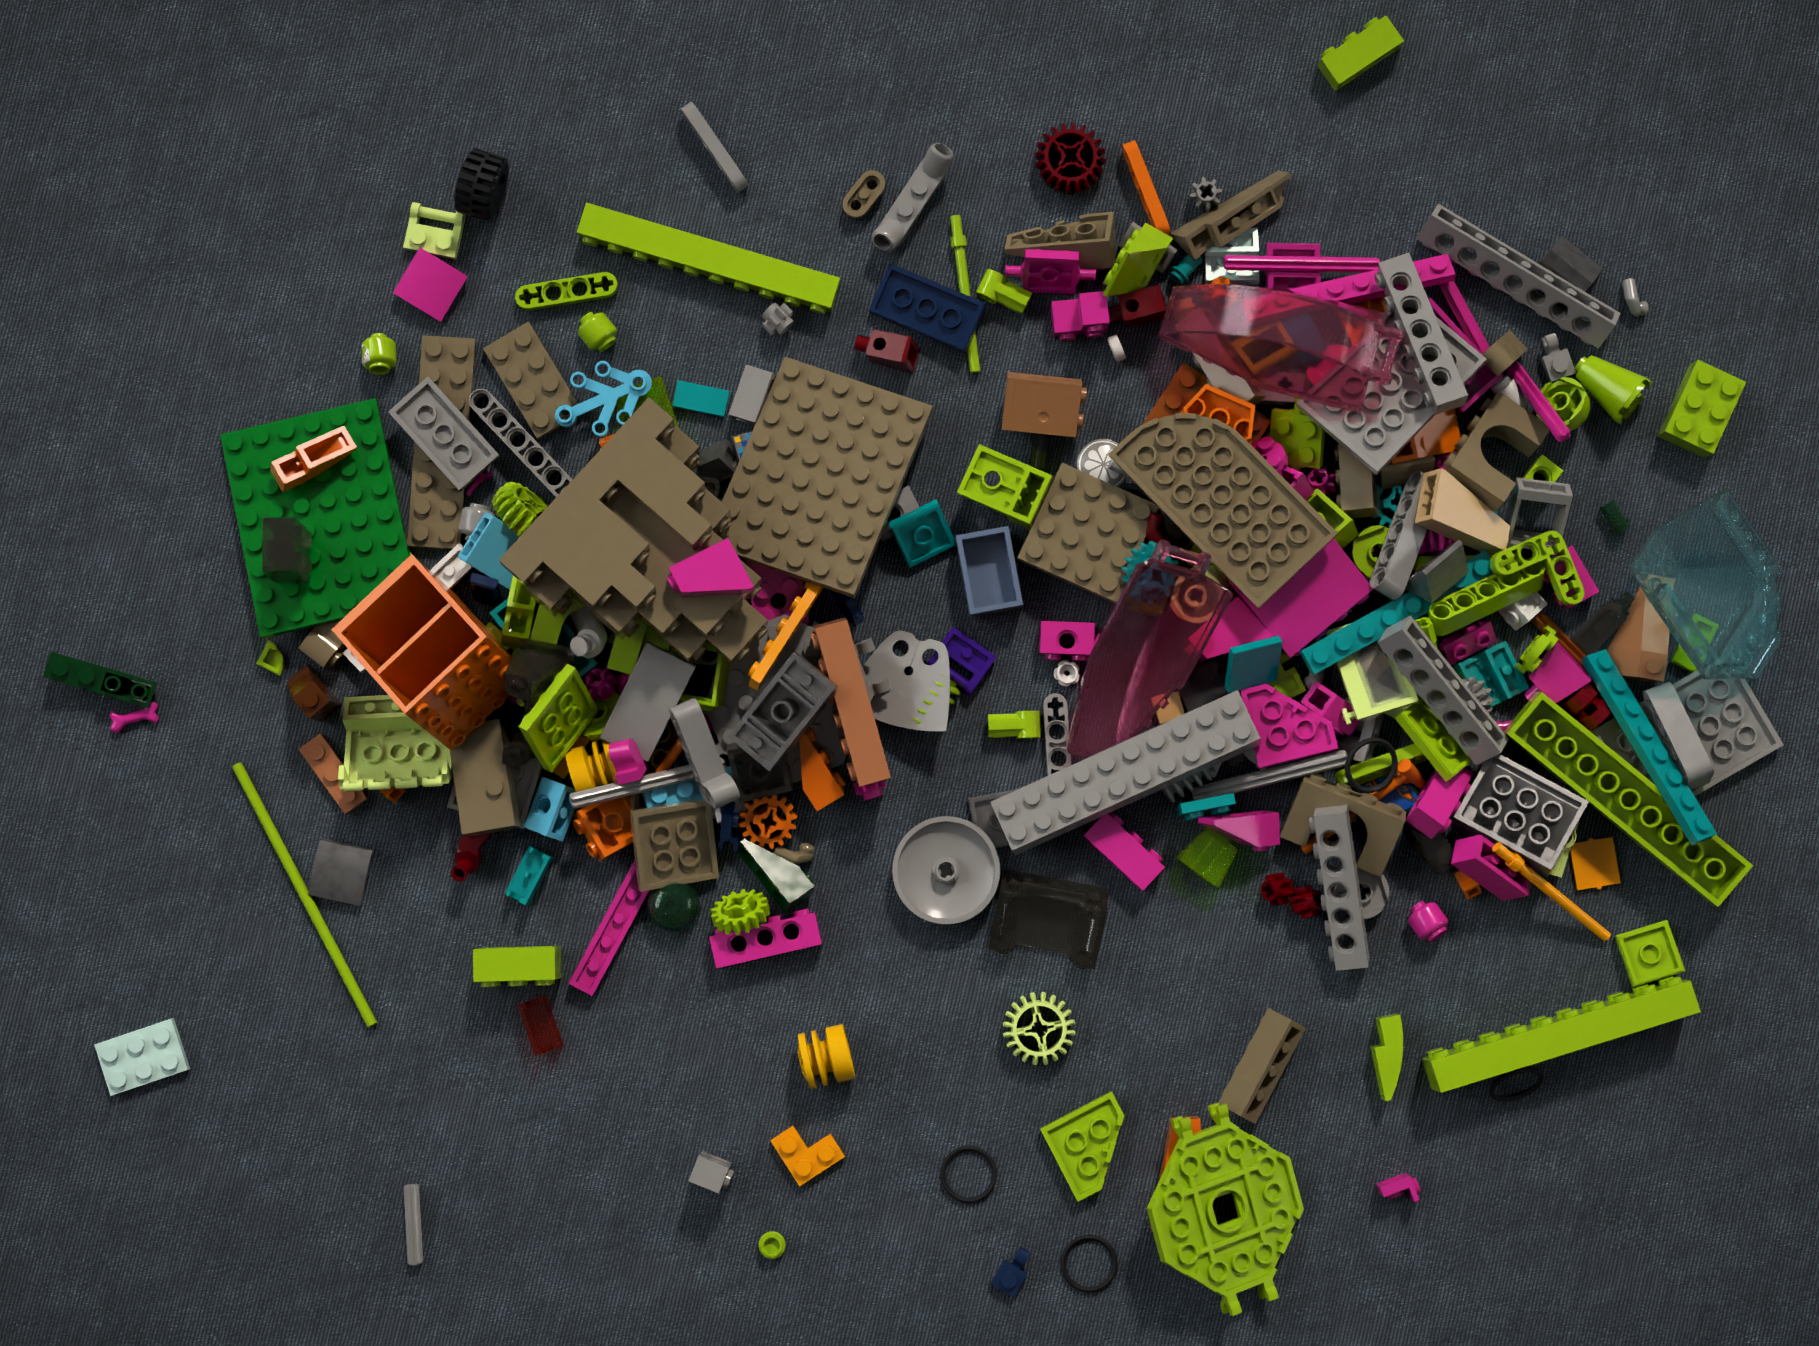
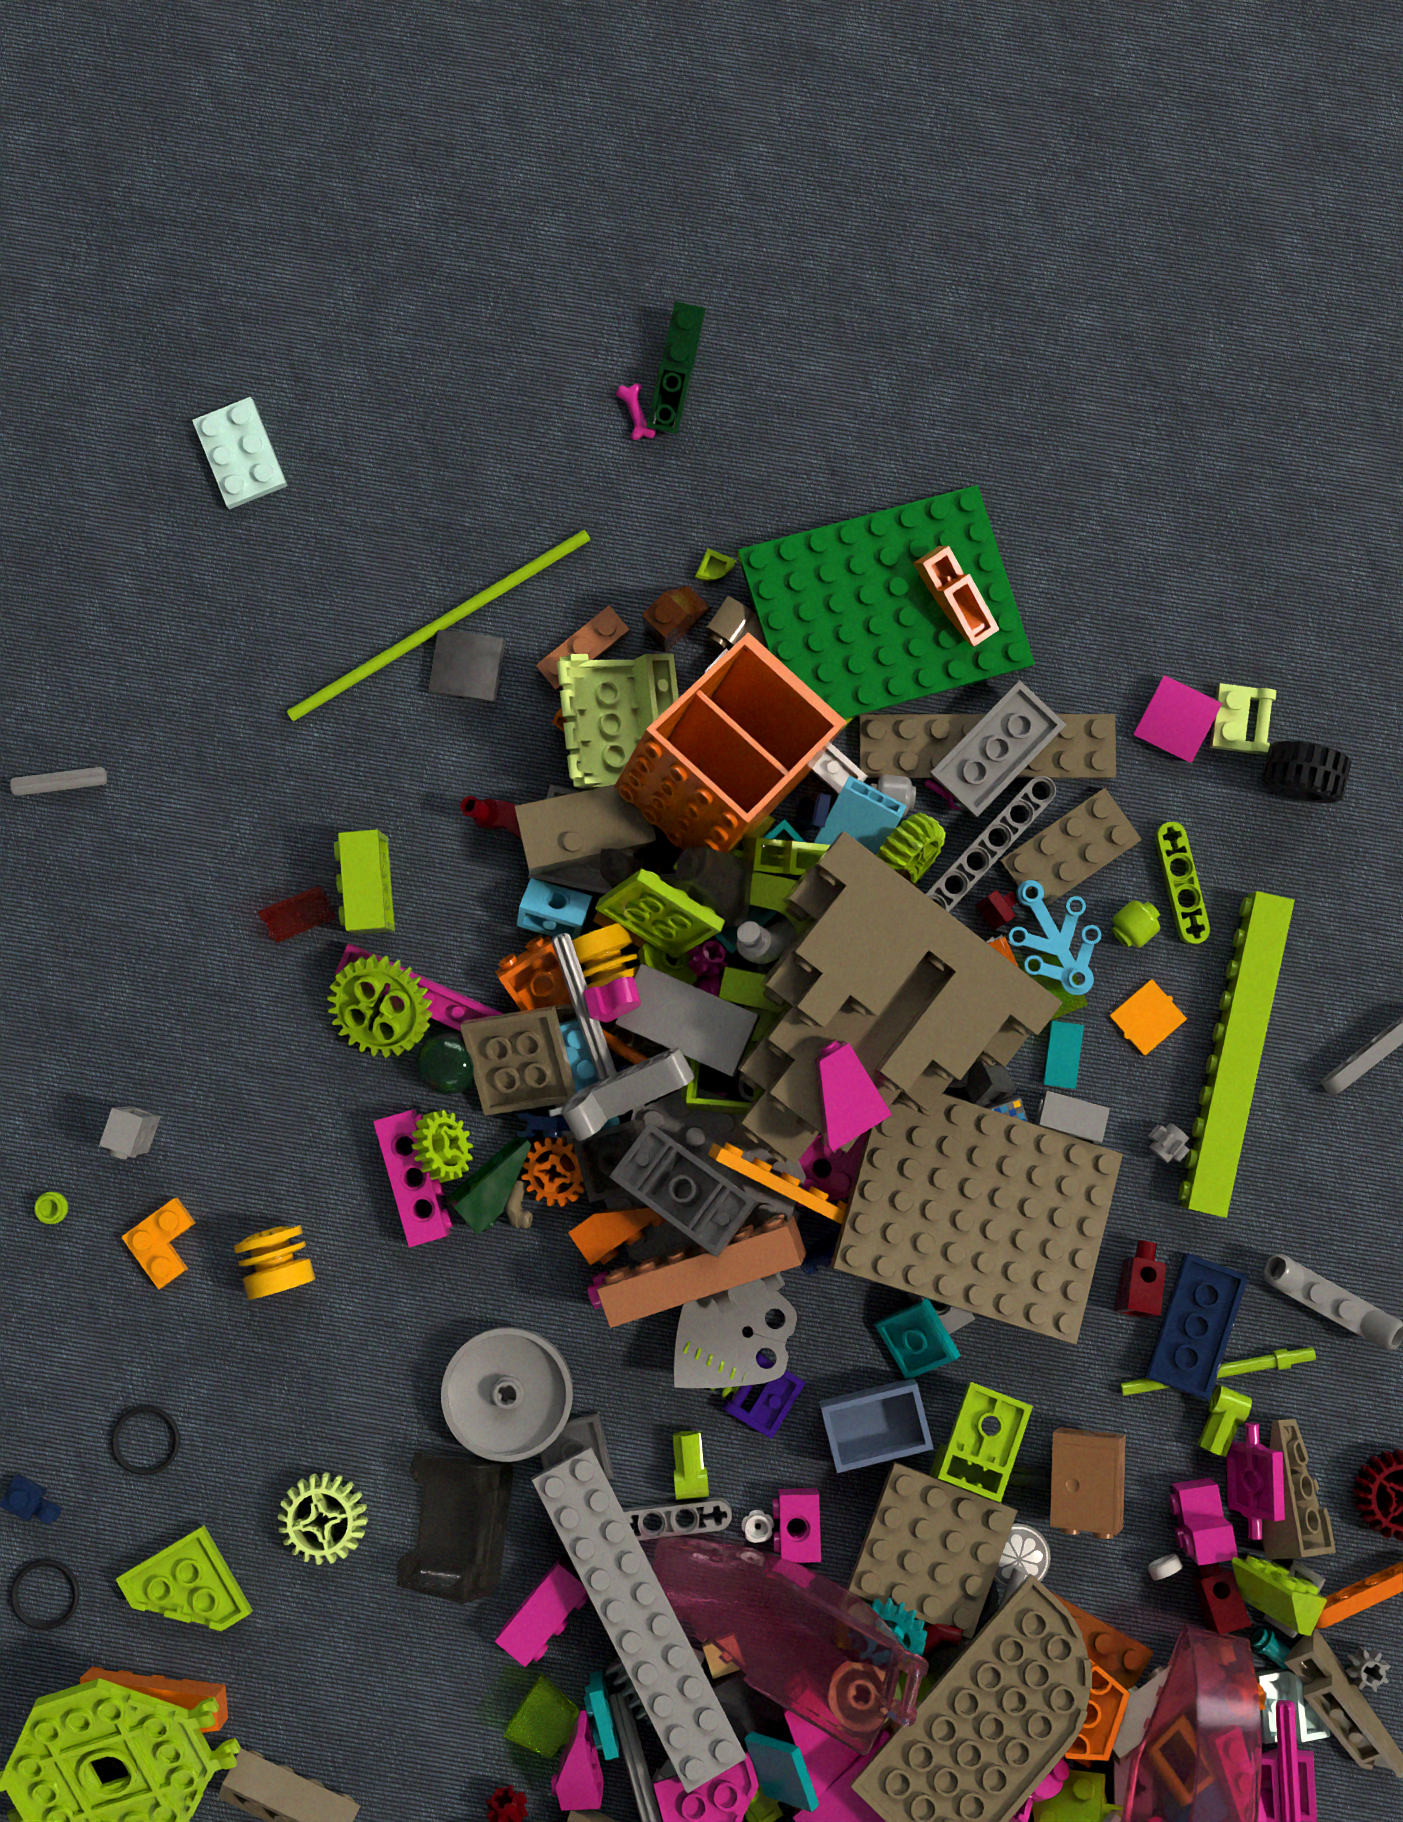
camera: 90 degrees right, 0 degrees up
(286, 550) = (843, 571): clear smoke brick -> none
(379, 354) = (1088, 664): lime head -> none
(529, 875) = (474, 887): teal hinge -> none
(576, 443) = (997, 909): none -> dark red tile
(609, 980) = (353, 993): none -> lime gear
(675, 327) = (1147, 1017): none -> light orange piece
(863, 195) = (1330, 1237): dark tan plate -> none

